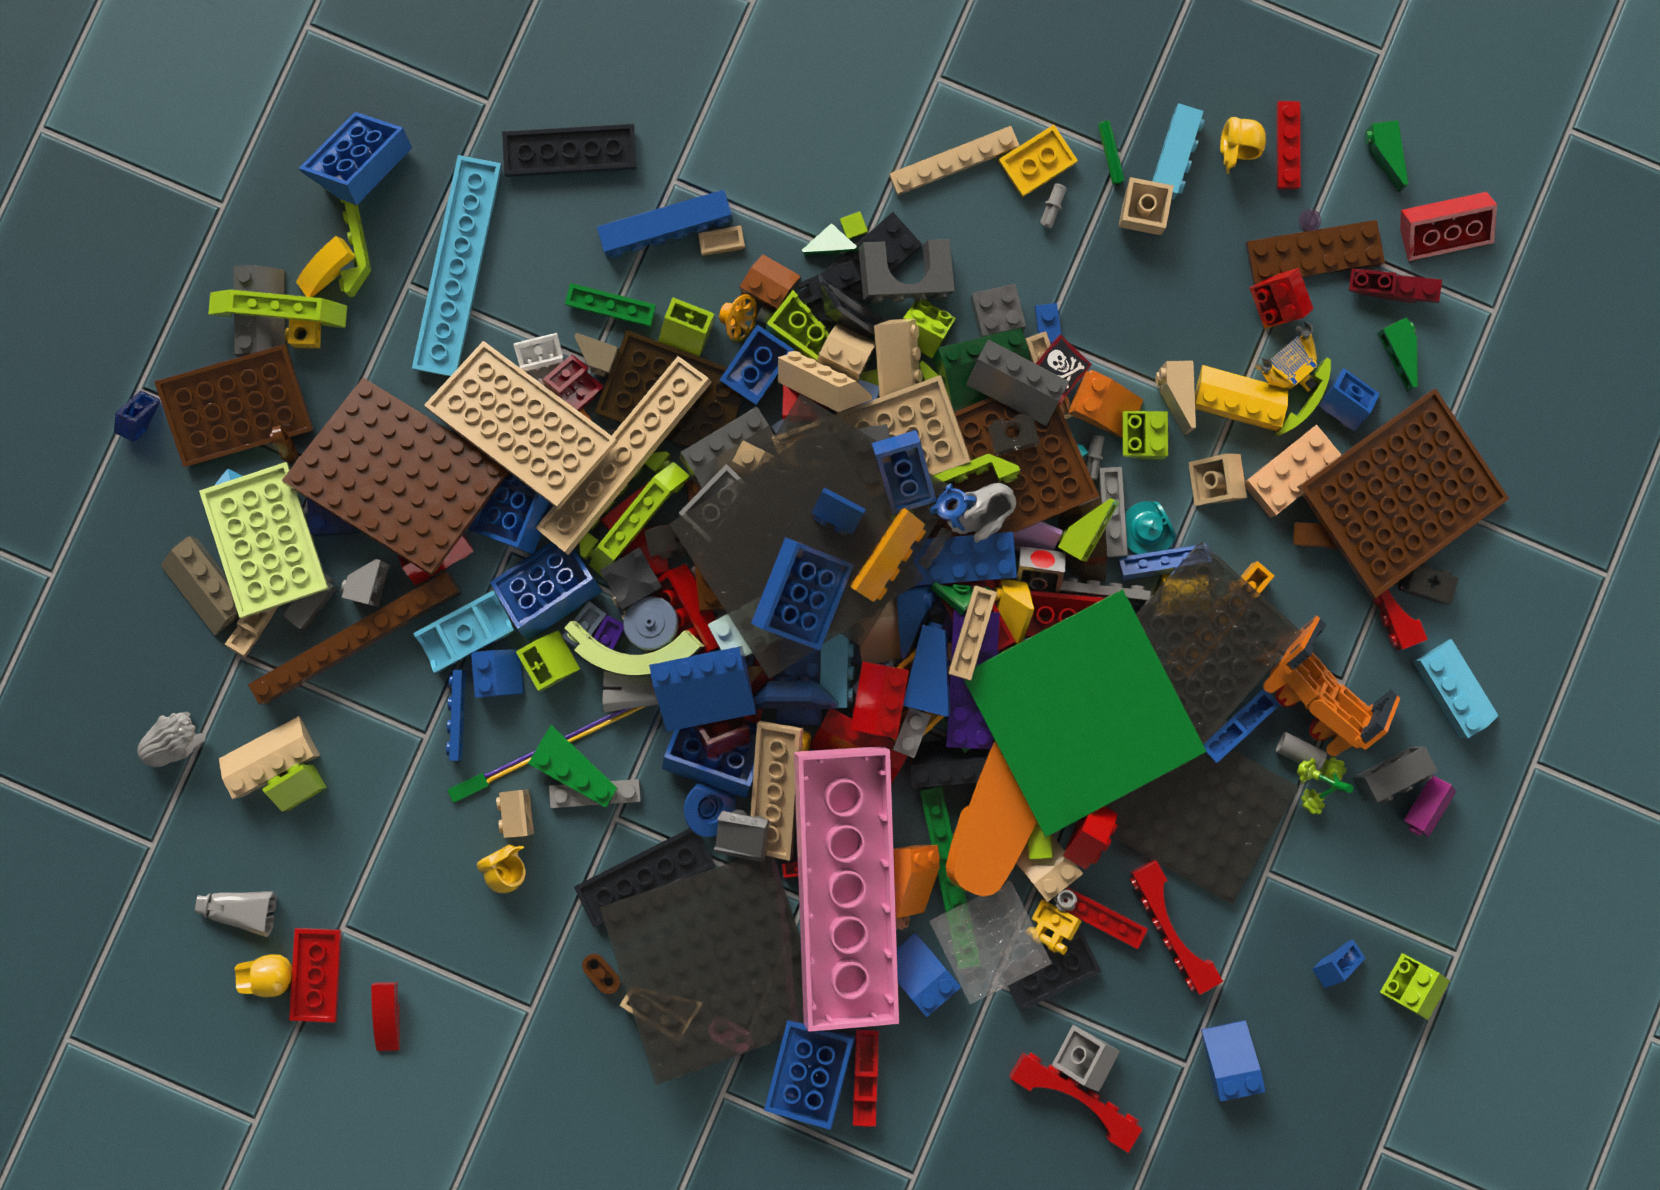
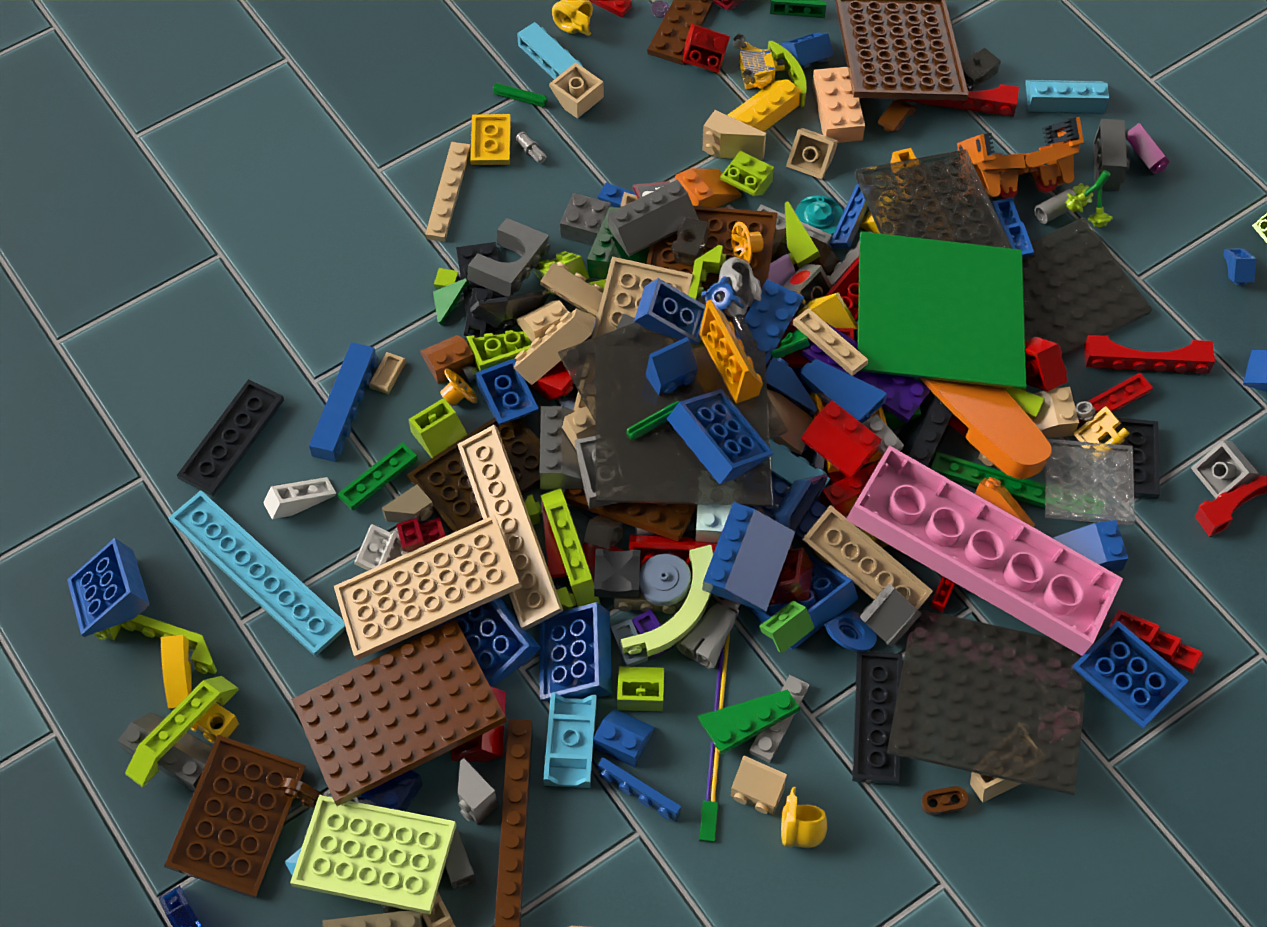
camera: 55 degrees left, 25 degrees down
(548, 251) = (295, 497): none -> white slope
(671, 754) = (788, 626): none -> bright green panel
(780, 527) = (650, 422): none -> green axle
(1041, 492) = (748, 242): none -> light orange wheel

